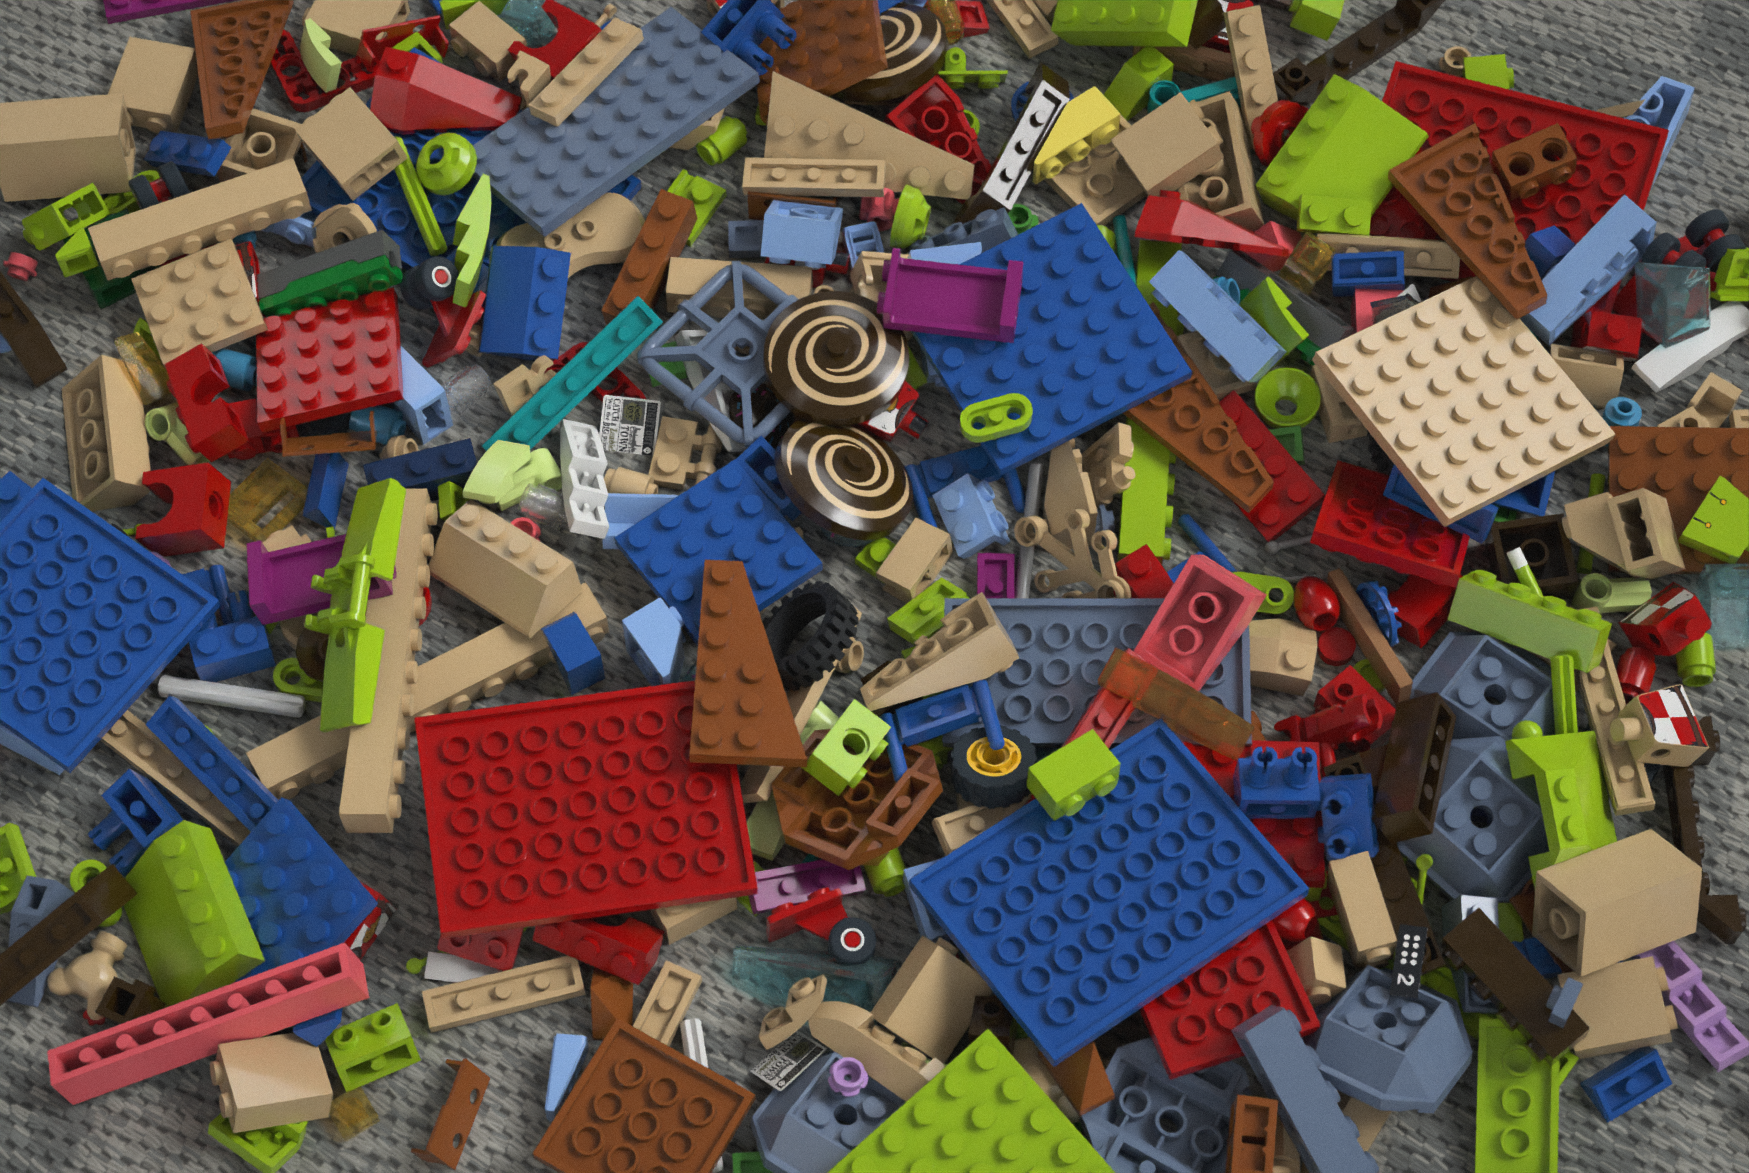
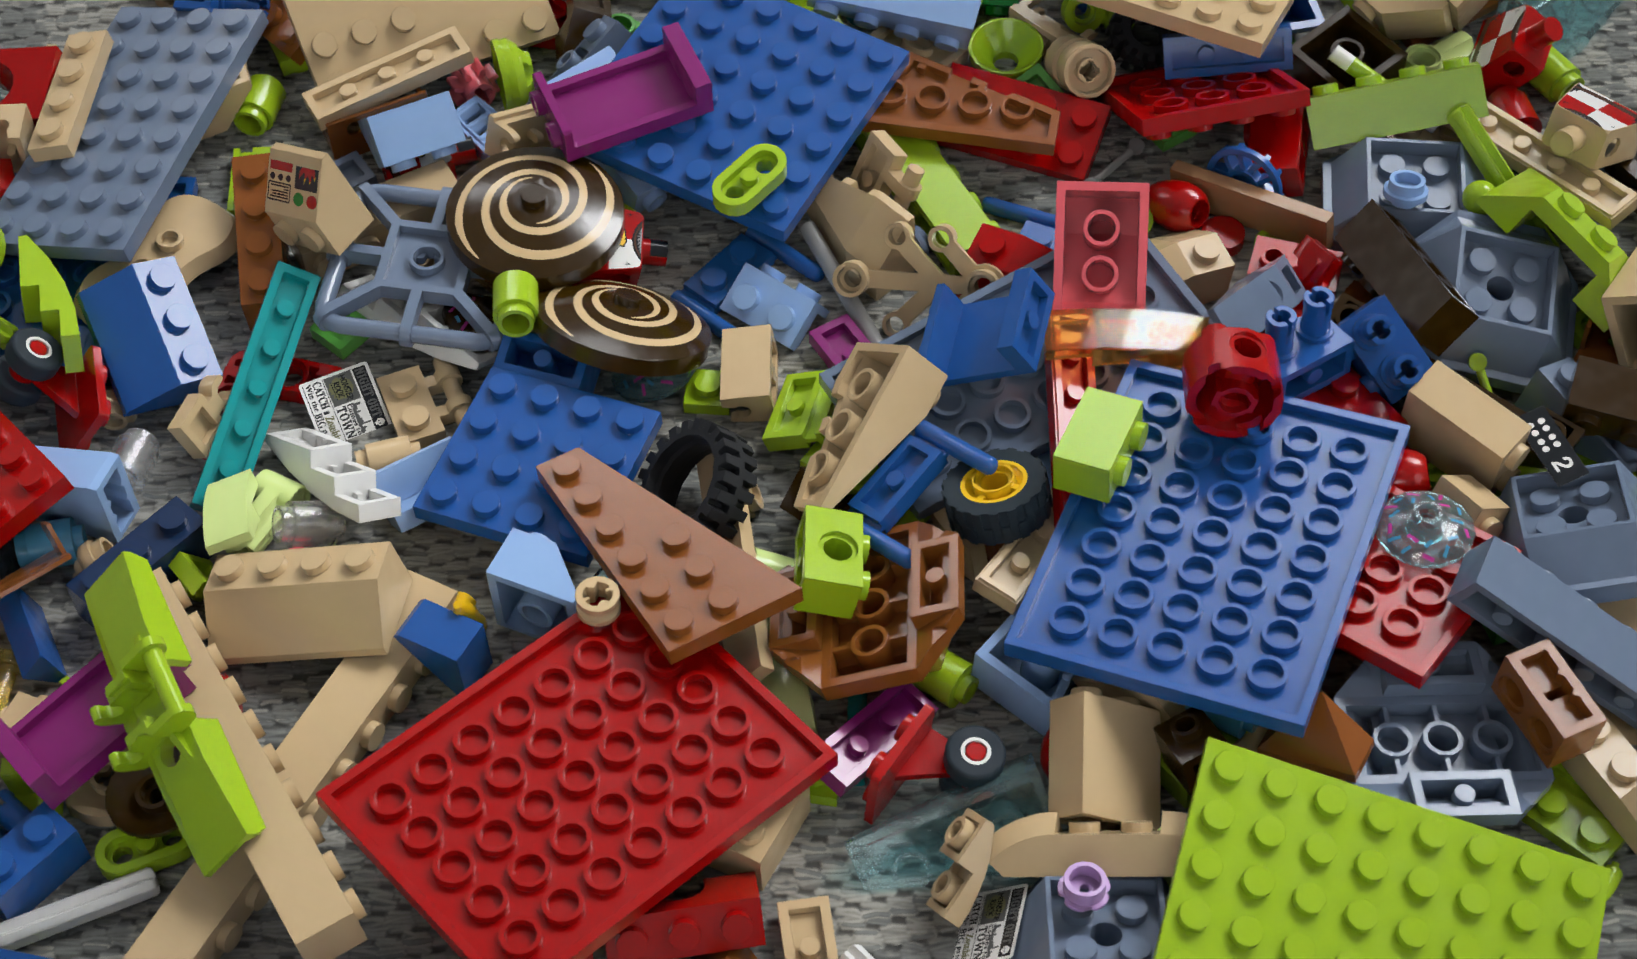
camera: 30 degrees left, 10 degrees down
(601, 637) = (466, 606): none -> yellow piece
(675, 697) = (588, 592): none -> tan bush
(684, 266) = (312, 201): none -> tan slope
(773, 422) = (515, 302): none -> lime brick
(1067, 639) = (989, 335): none -> blue panel
(1197, 783) = (1232, 380): none -> red brick
(1261, 983) = (1425, 529): none -> clear light blue dish
(1280, 726) = (1257, 293): none -> sand blue slope
(1325, 447) = (1080, 66): none -> tan wheel
(1475, 697) = (1406, 189): none -> light blue plate

